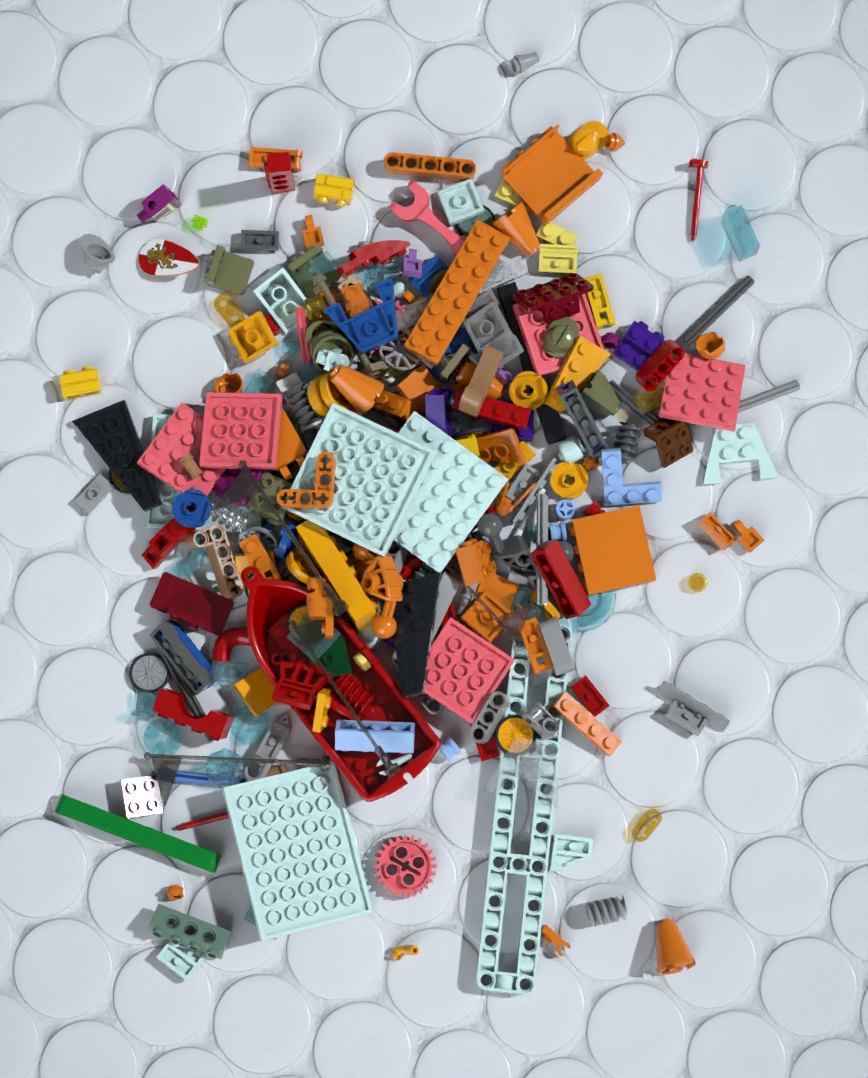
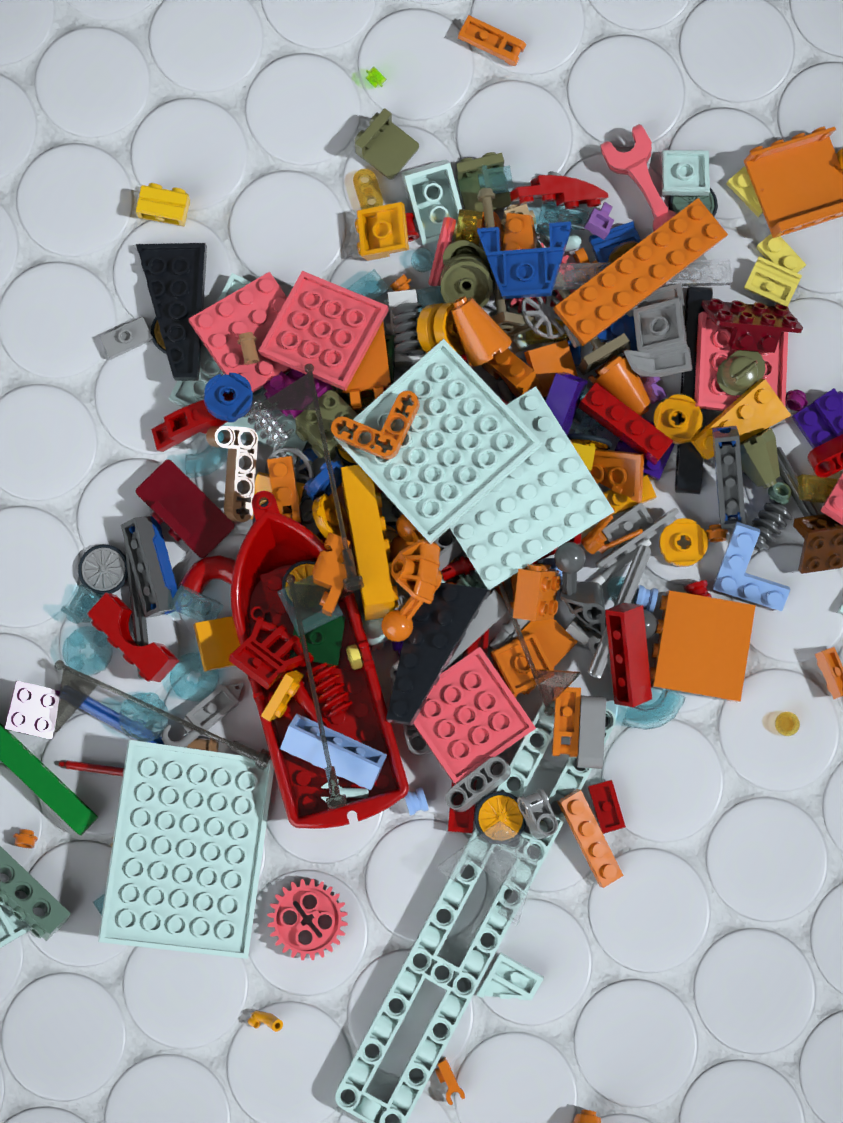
camera: 15 degrees right, 0 degrees up
(96, 252) = (243, 64): light grey piece -> none
(163, 200) = (337, 37): magenta torso -> none
(166, 258) = (320, 103): shield -> none
(229, 383) = (333, 272): orange hair -> none
(259, 240) = (436, 125): dark grey plate -> none
(279, 172) = (490, 52): red brick -> none
(312, 234) = (499, 141): orange plate -> none
(331, 358) = (462, 287): light aqua hips -> none
(333, 190) = (544, 100): yellow brick -> none
(421, 161) = (659, 108): orange beam -> none
(481, 381) = (628, 384): medium nougat beam -> none
(519, 228) = (742, 227): orange cone -> none
(521, 600) = (571, 662): clear light blue bracket -> none
(523, 62) = (822, 43): light grey cone -> none
(549, 610) = (599, 687): light orange plate -> none
(564, 506) = (668, 573): light blue wheel -> none
(571, 449) = (700, 508): light aqua head -> none
(600, 302) = (801, 351): yellow plate -> none
(606, 911) = (524, 1071): light grey piece -> none
(625, 414) = (780, 492): none -> sand green plate
(650, 828) = (615, 993): clear yellow beam -> none
(690, 712) = (718, 874): light grey bracket -> none

